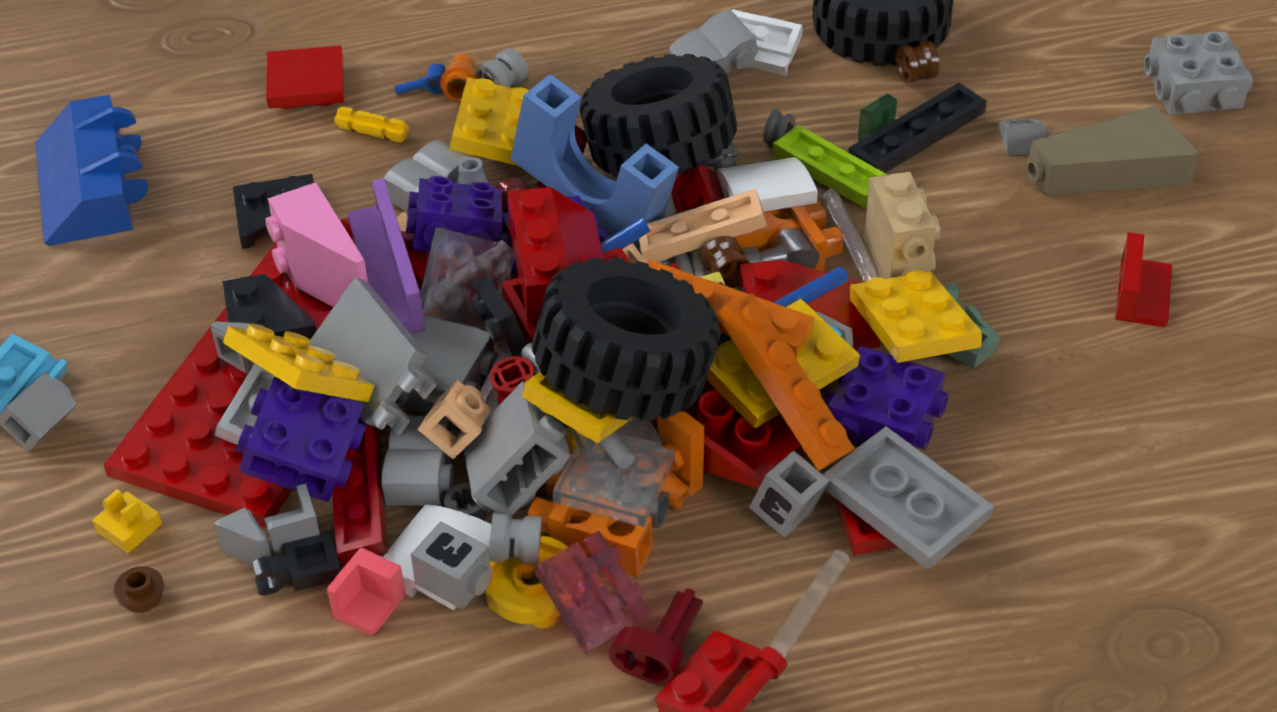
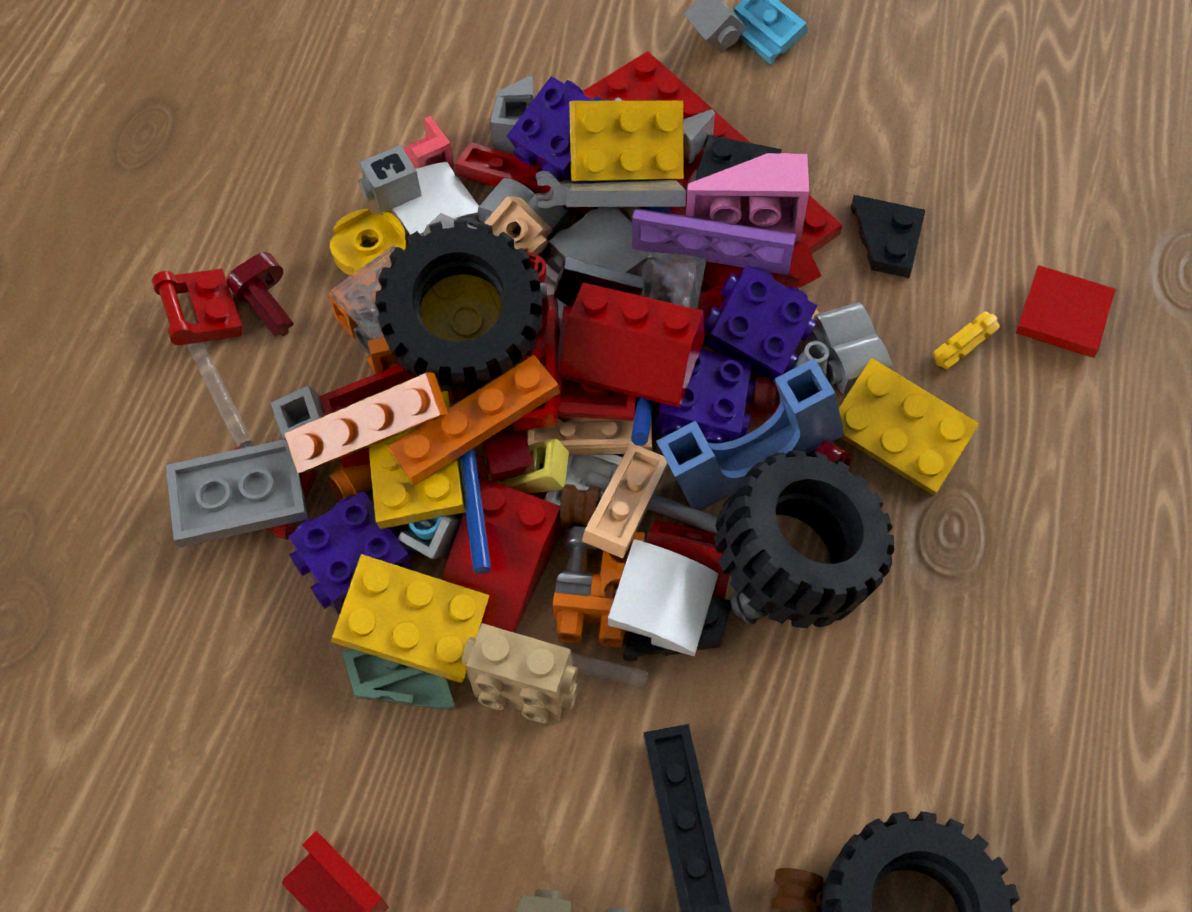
camera: 120 degrees right, 15 degrees up
(85, 171) = (999, 126): blue piece -> none
(126, 520) = (590, 54): yellow tile -> none
(138, 598) = (524, 44): reddish brown plate -> none
(304, 562) = (475, 124): black plate -> none
(430, 82) = (1015, 417): blue hand -> none
(455, 76) = (1003, 435): orange cone -> none
(506, 70) = (986, 470): light grey wheel -> none
(515, 538) = (385, 225): light grey wheel -> none
(582, 596) = (315, 250): clear pink plate -> none
(721, 40) = (915, 675): light grey brick -> none
(775, 41) = (924, 746): white plate -> none
(777, 126) = (762, 679): dark grey bush -> none
(828, 163) = (679, 697): lime plate -> none
(877, 115) = (720, 784): clear green tile -> none

